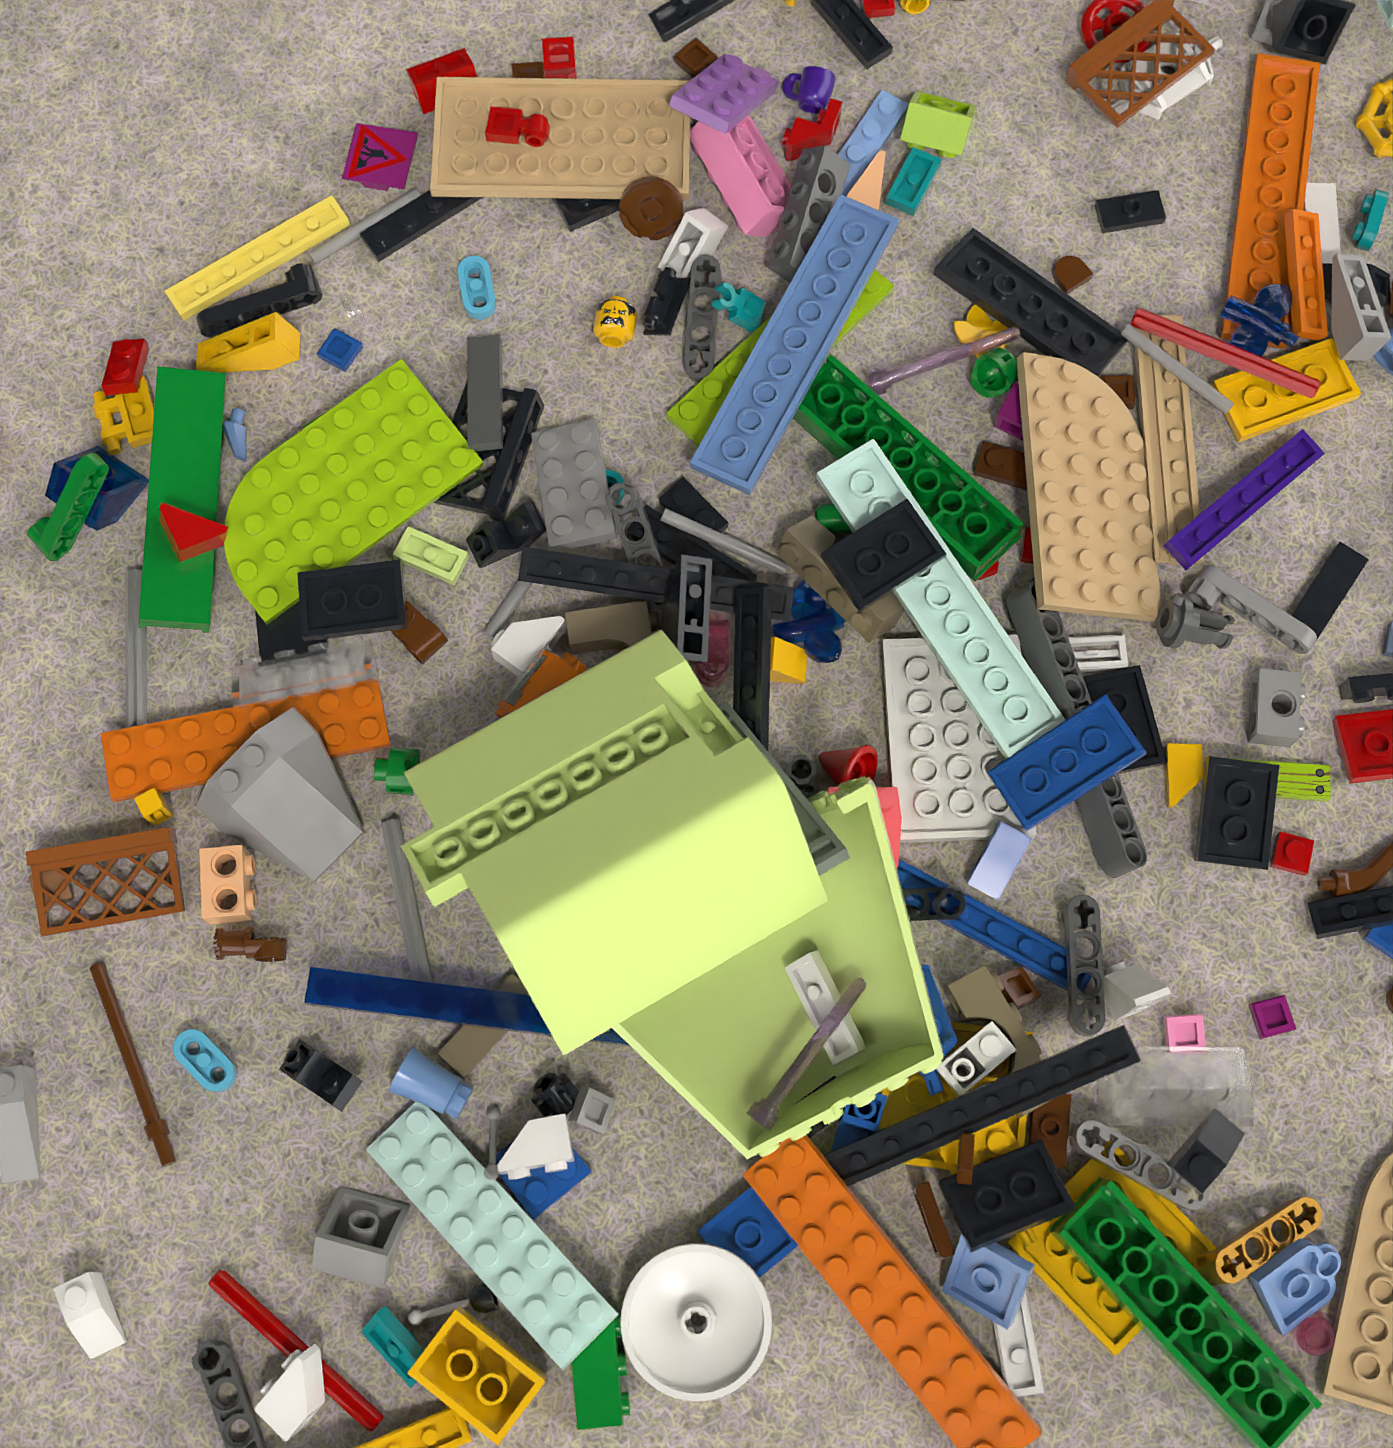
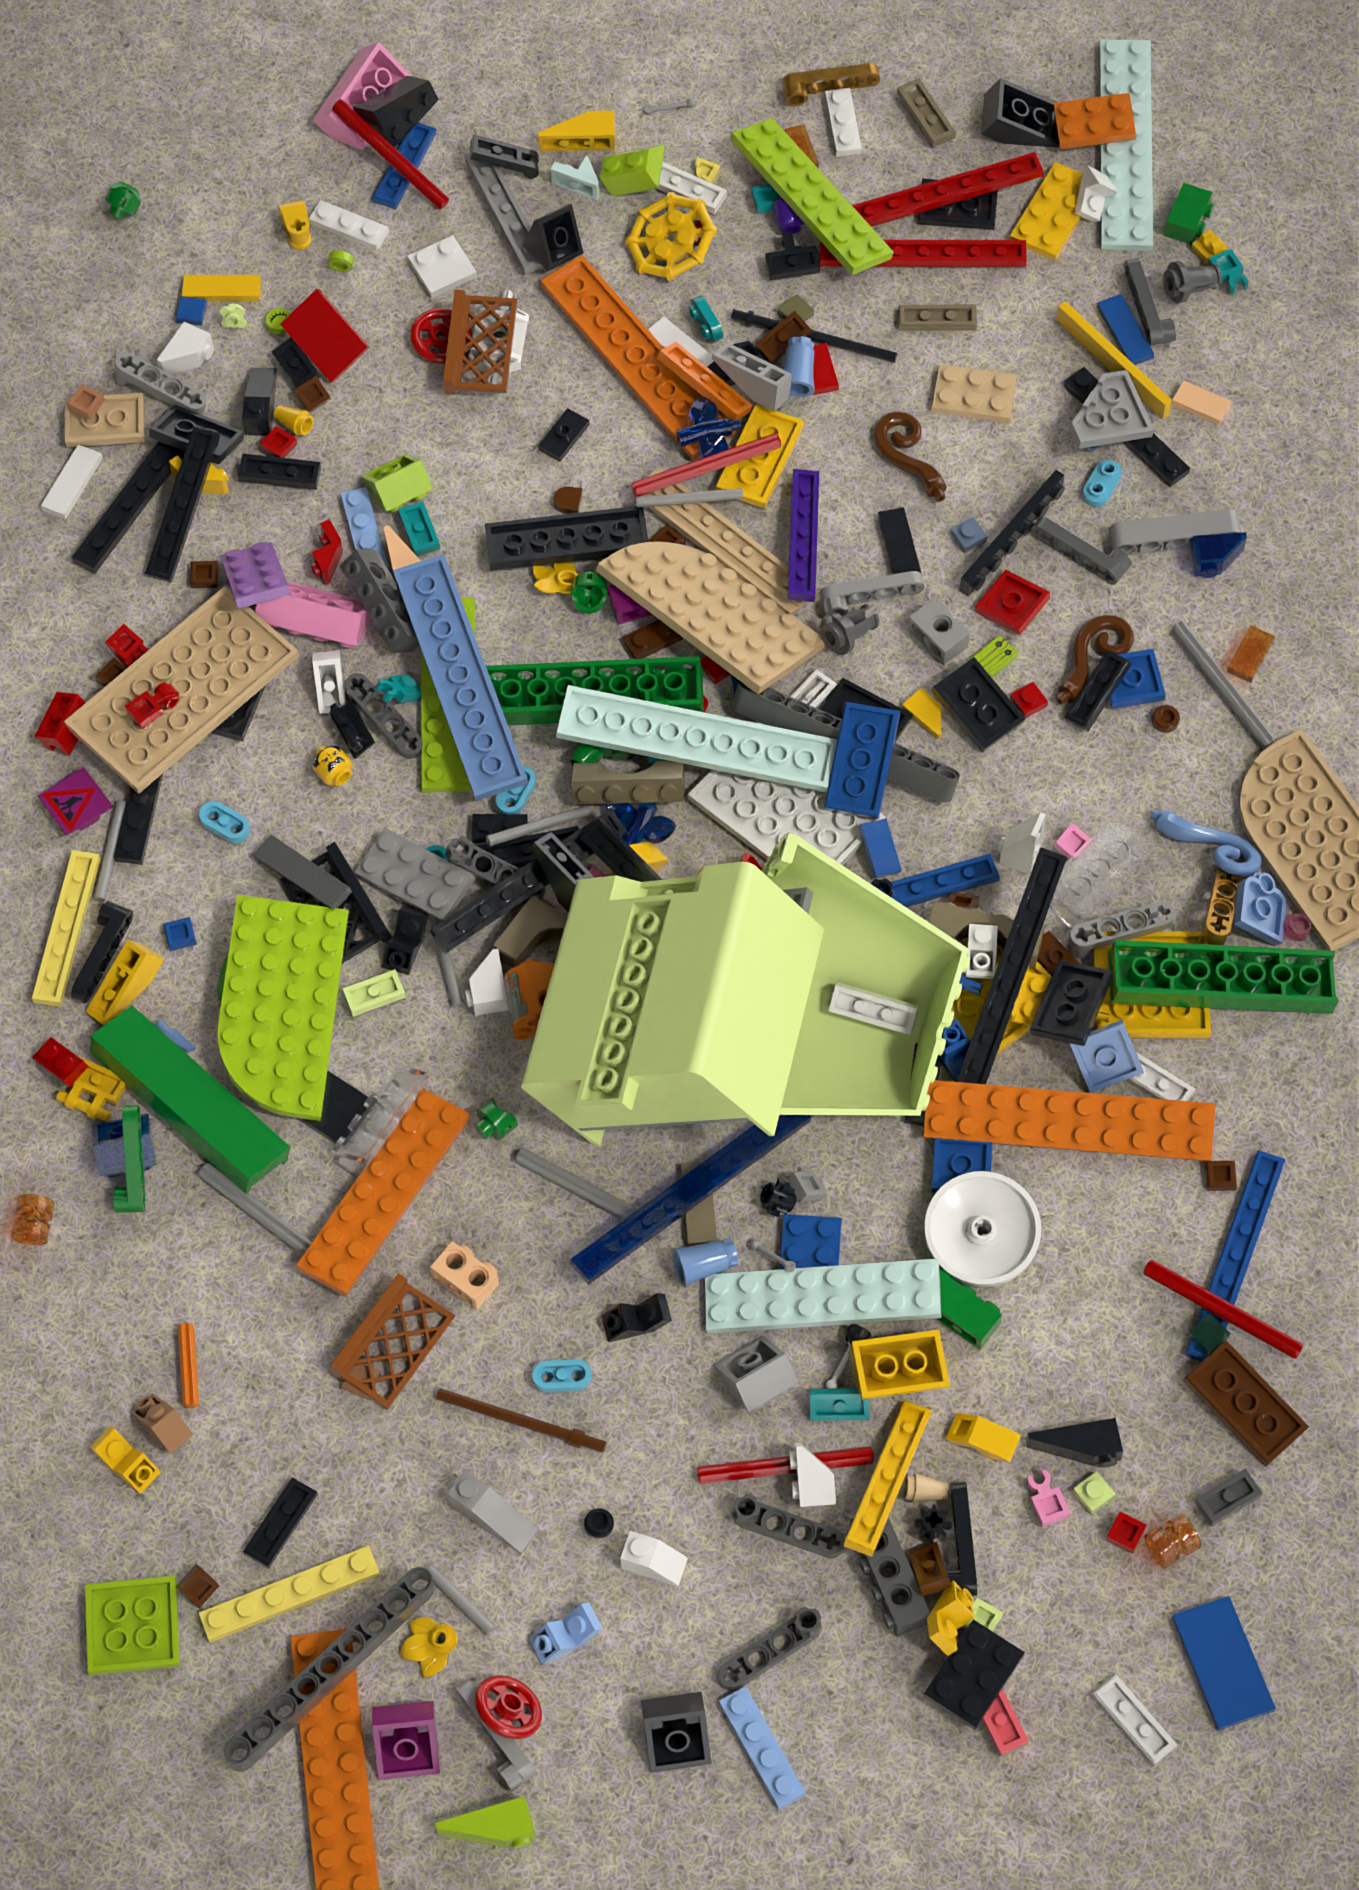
camera: 45 degrees left, 10 degrees down
(89, 1228) = (599, 1523): none -> black plate
(153, 807) = (374, 1275): yellow piece -> none
(190, 533) = (222, 1104): red slope -> none
(245, 943) = (513, 1294): reddish brown connector -> none
(284, 797) = (447, 1198): light grey wedge -> none
(352, 600) = (364, 1051): black plate -> none
(421, 637) = (416, 1040): reddish brown piece -> none
(539, 1144) = (801, 1224): white slope -> none
(651, 208) = (283, 680): reddish brown tile -> none
(740, 500) = (518, 795): none -> medium azure plate
(766, 1109) = (902, 1084): piece -> none
(814, 88) = (299, 527): dark purple piece -> none
(882, 380) = (528, 653): piece -> none
(883, 555) = (644, 741): black plate -> none
(933, 1220) = (1047, 1061): reddish brown tile -> none
(965, 1159) = (1032, 1002): reddish brown tile -> none
(1090, 965) = (958, 843): dark grey beam -> none
(1206, 1151) = (1147, 883): black slope -> none
(1272, 1017) = (1108, 793): magenta tile -> none
(1303, 1125) = (1232, 846): none -> medium blue plant

